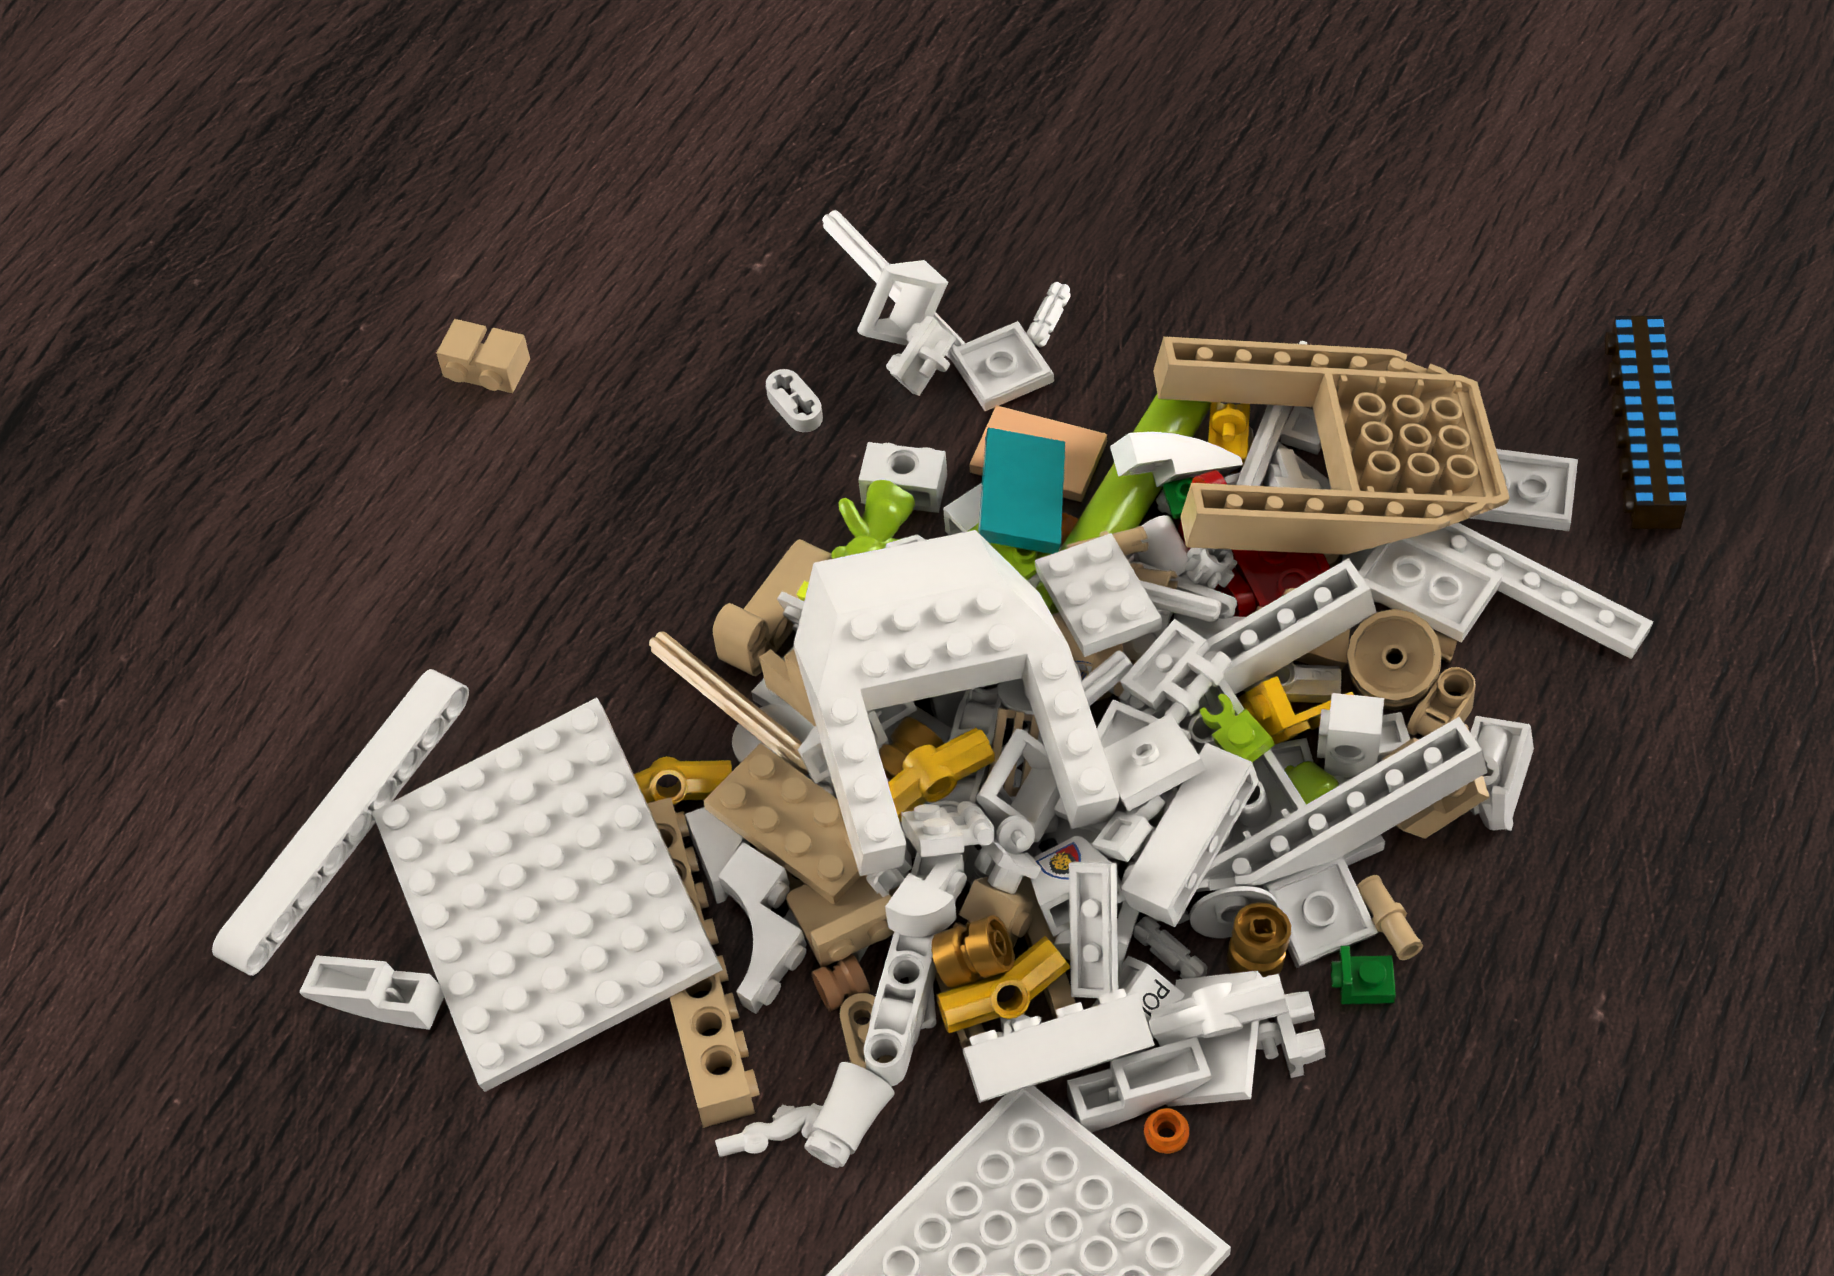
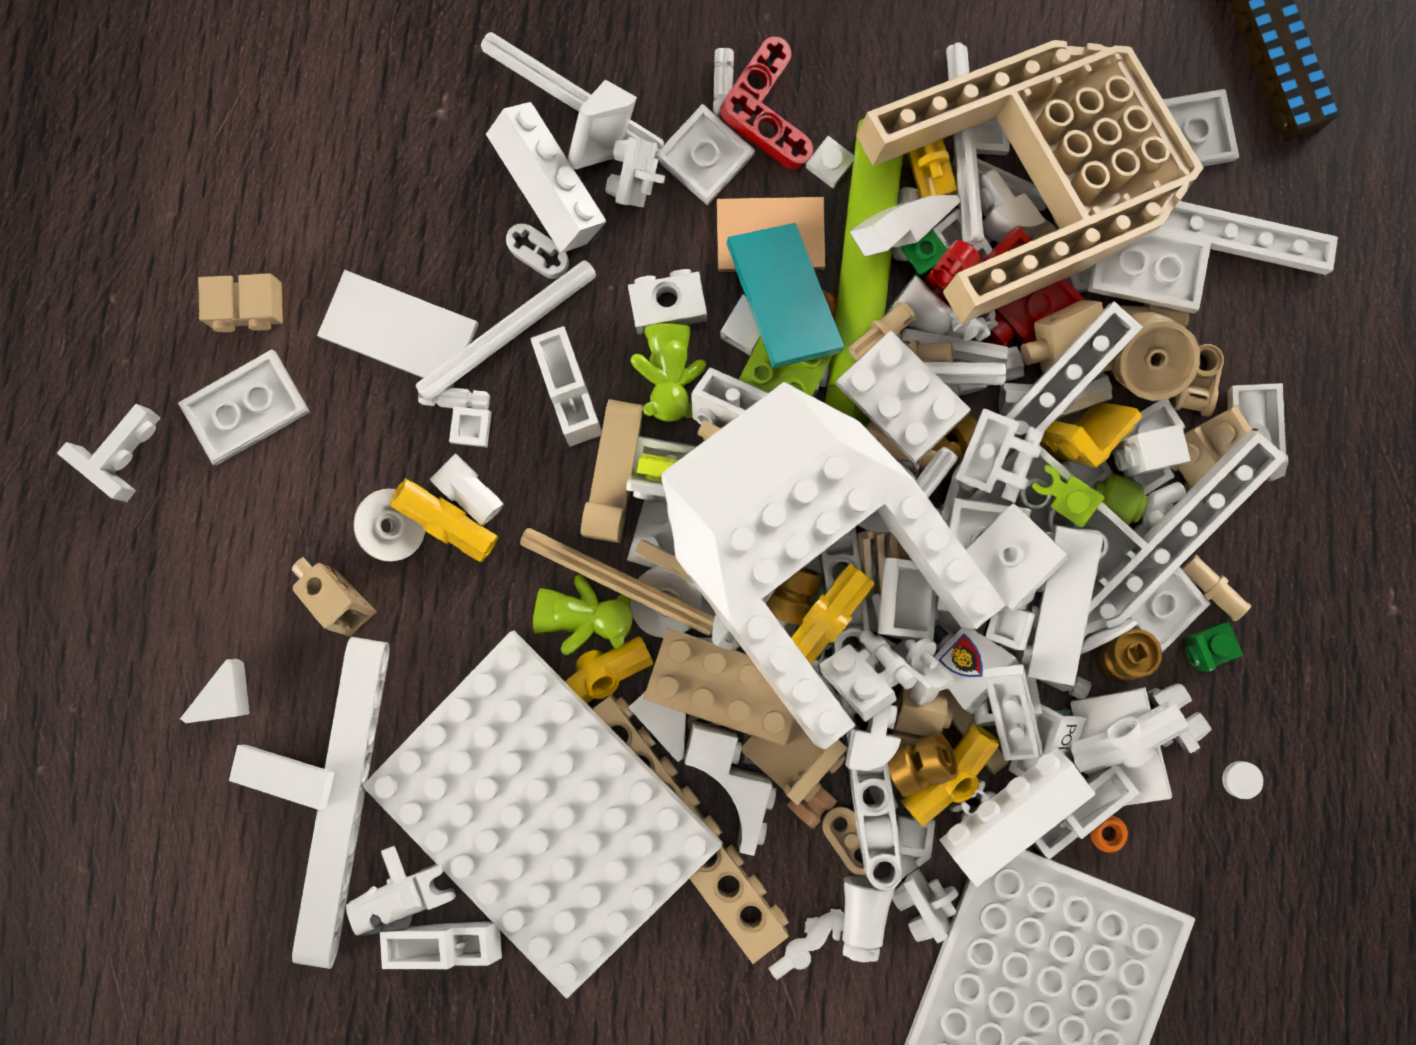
camera: 25 degrees left, 30 degrees up
(275, 684) = (222, 696): none -> white slope
(295, 442) = (113, 453): none -> white bracket
(297, 770) = (282, 776): none -> white tile
(356, 930) = (396, 903): none -> white piece
(431, 611) = (330, 597): none -> tan torso
(437, 449) = (243, 407): none -> white tile
(536, 572) = (395, 545): none -> white dish
(582, 596) = (443, 520): none -> yellow piece
(617, 573) = (461, 484): none -> white piece
(623, 427) = (394, 326): none -> white tile
(647, 499) = (459, 398): none -> white axle
(650, 526) = (470, 427): none -> white plate
(672, 720) = (582, 617): none -> lime piece
(728, 452) = (505, 330): none -> white axle
(764, 520) = (566, 386): none -> white slope
(831, 336) = (545, 177): none -> white brick
(929, 1128) = (932, 903): none -> white hips
(932, 1071) = (914, 843): none -> white tile
(1070, 340) = (752, 99): none -> red beam
(1126, 408) = (830, 162): none -> white plate
(1348, 1128) = (1242, 780): none -> white tile

